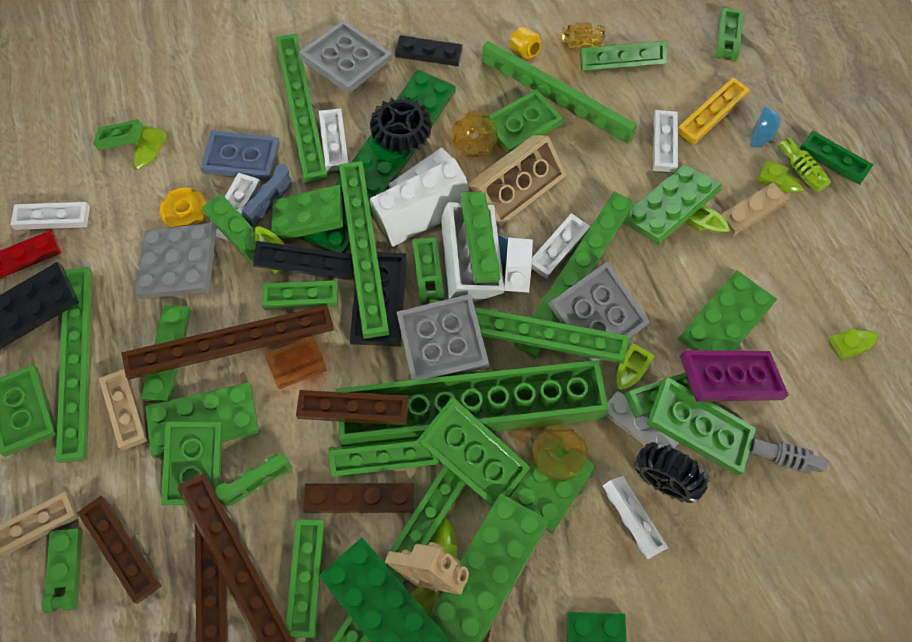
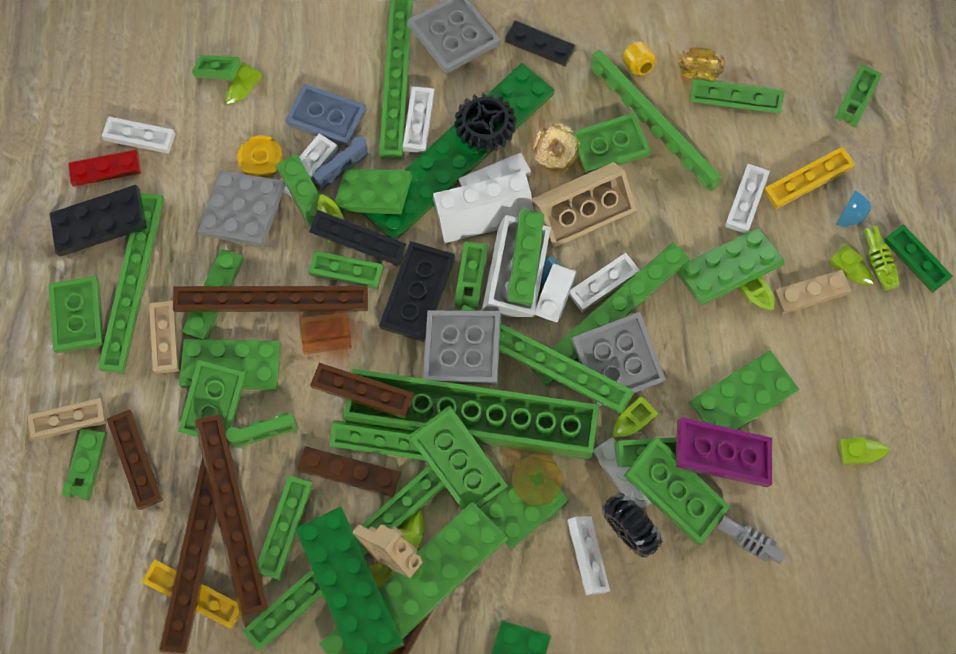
camera: 20 degrees right, 5 degrees up
(363, 251) = (414, 240): bright green plate -> none

